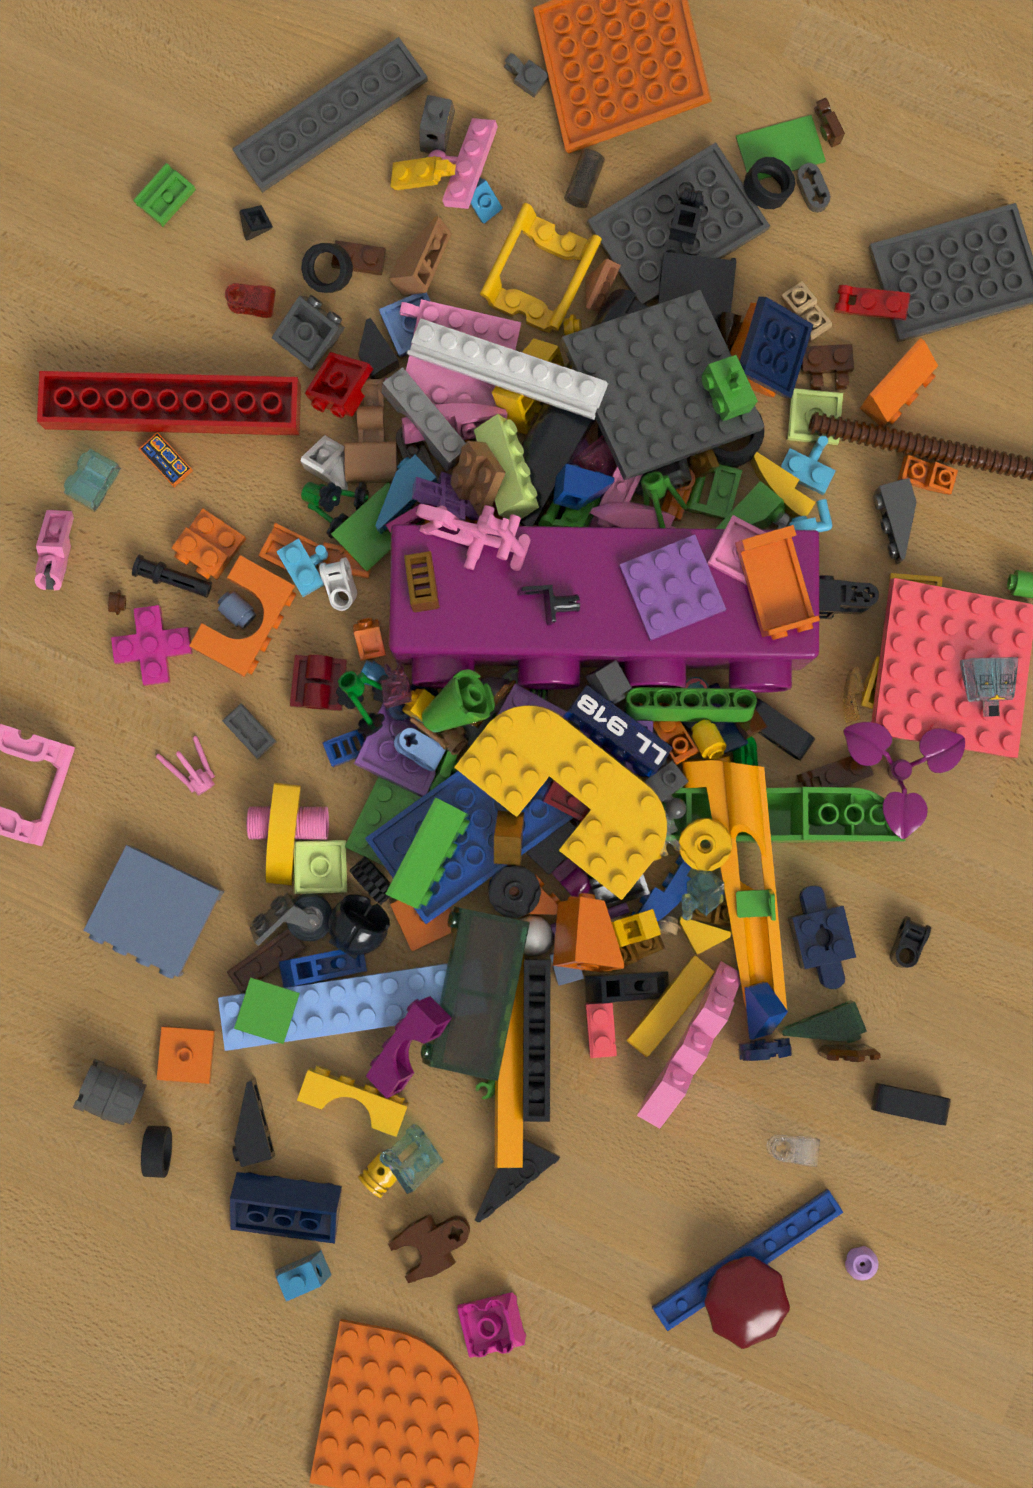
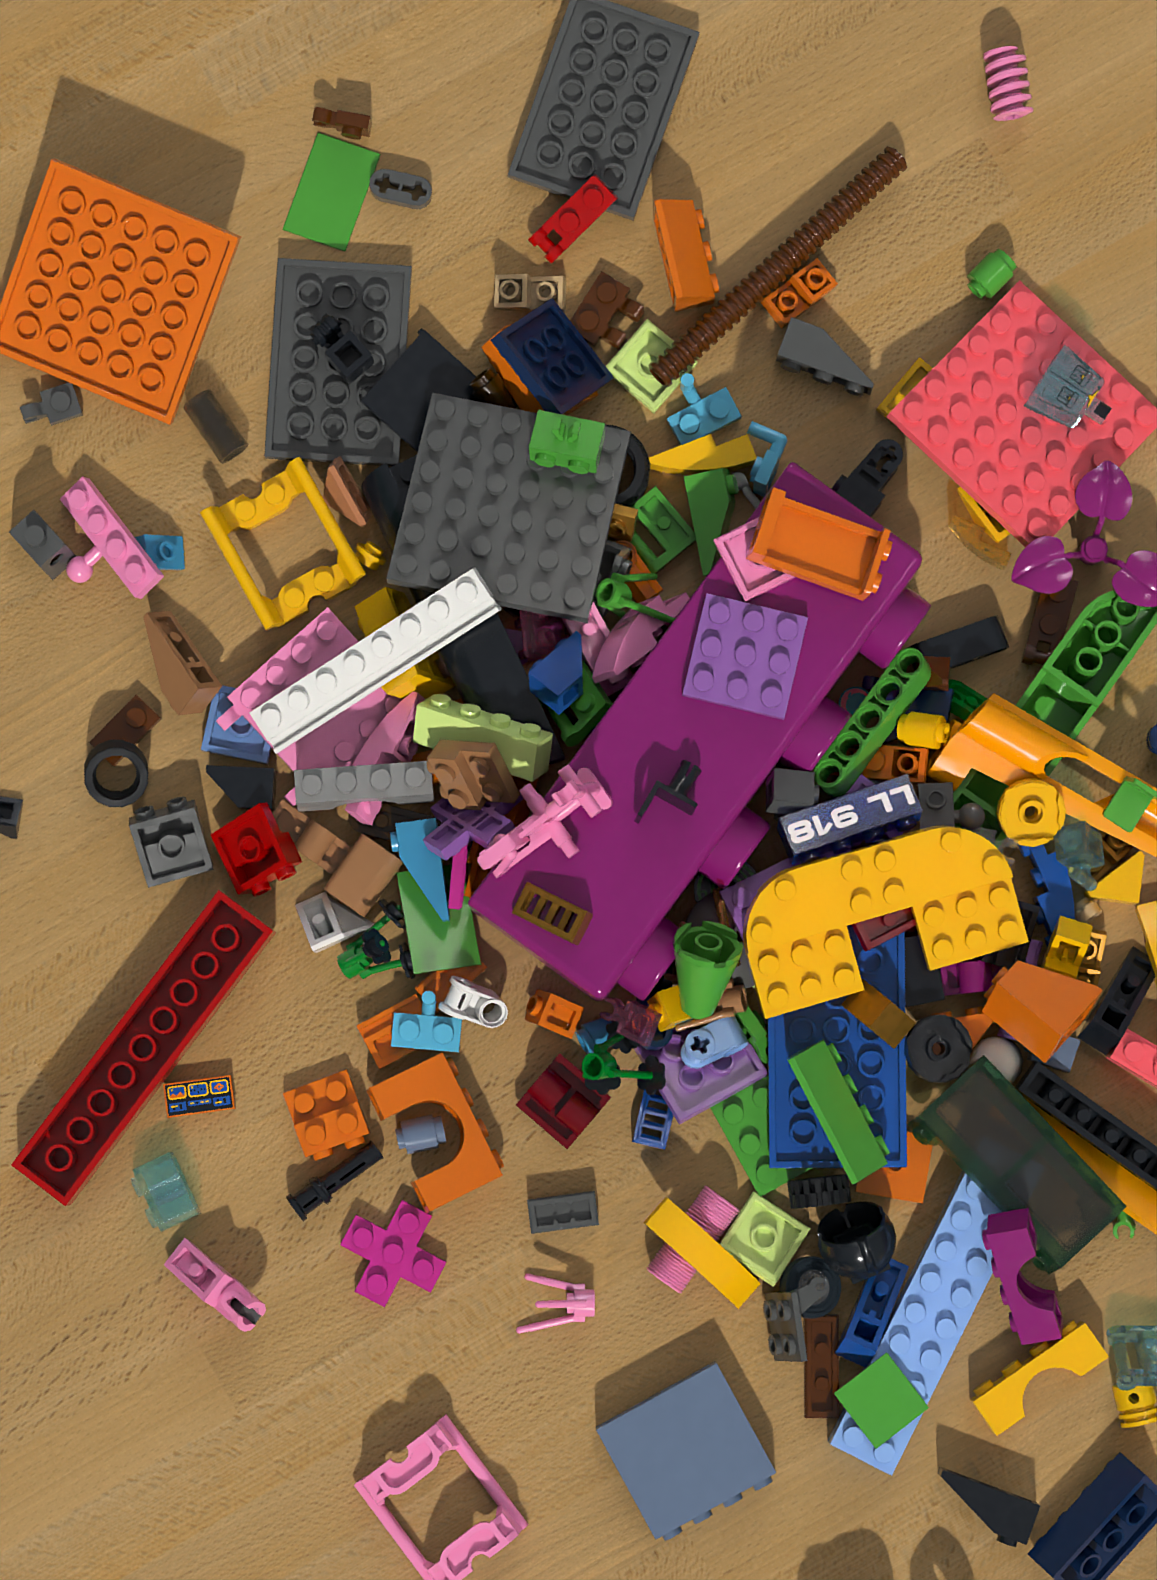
camera: 55 degrees left, 0 degrees up
(116, 602) = (320, 1258): reddish brown plate -> none
(185, 1054) = (863, 1523): orange plate -> none
(254, 300) = (96, 874): clear red piece -> none
(420, 172) = (83, 599): yellow hinge -> none
(776, 169) = (365, 212): black tyre -> none

